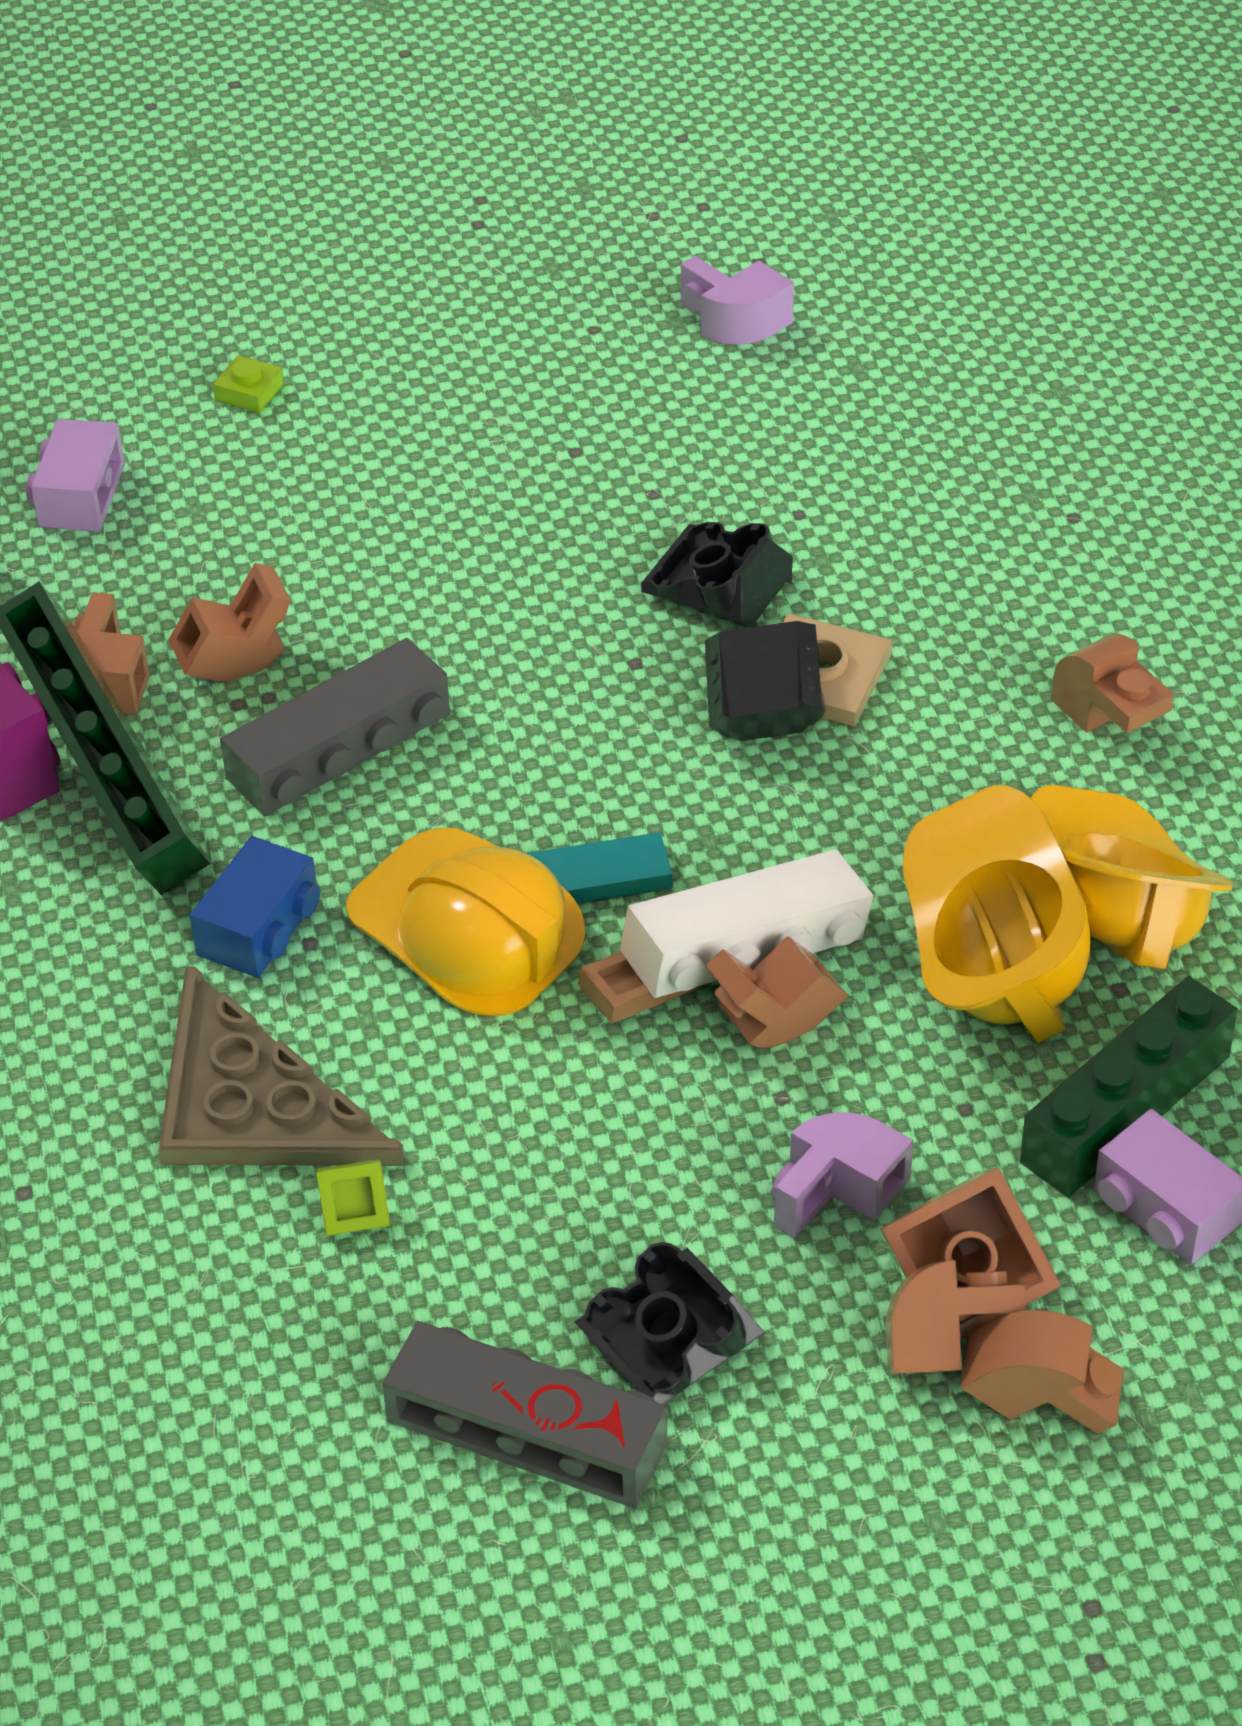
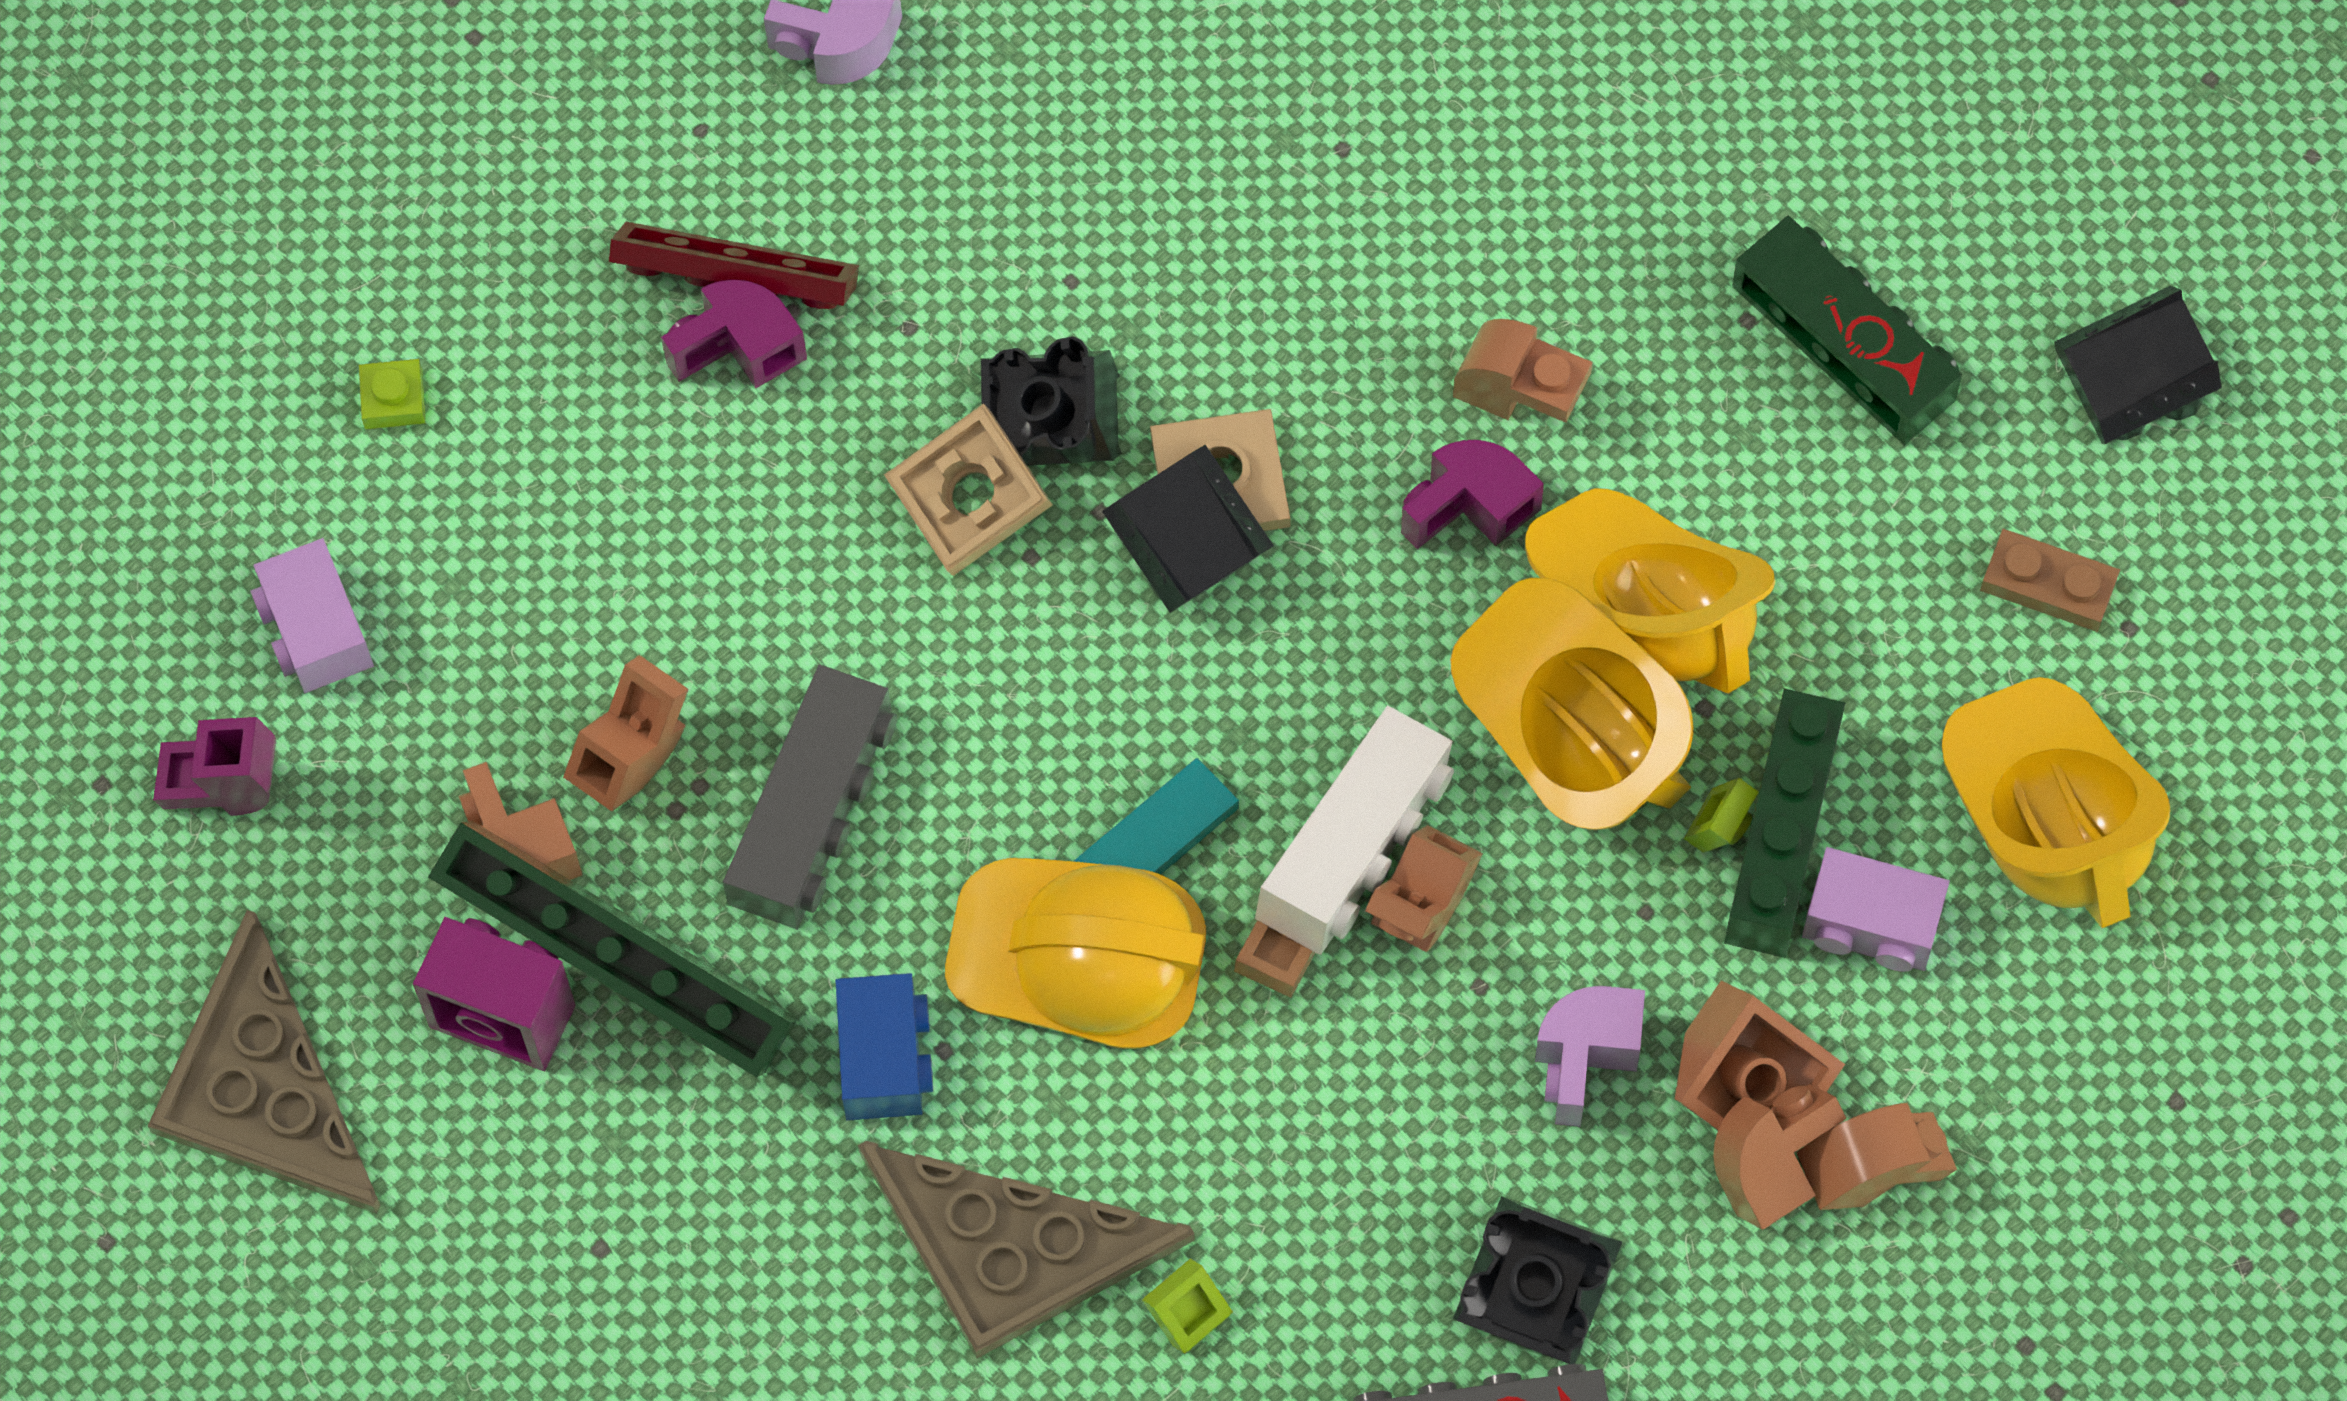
camera: 30 degrees left, 20 degrees up
(522, 430) = (737, 320): none -> magenta brick
(564, 411) = (710, 260): none -> dark red plate
(595, 576) = (930, 476): none -> tan piece
(1020, 744) = (1475, 480): none -> magenta brick
(1071, 1055) = (1722, 816): none -> lime plate

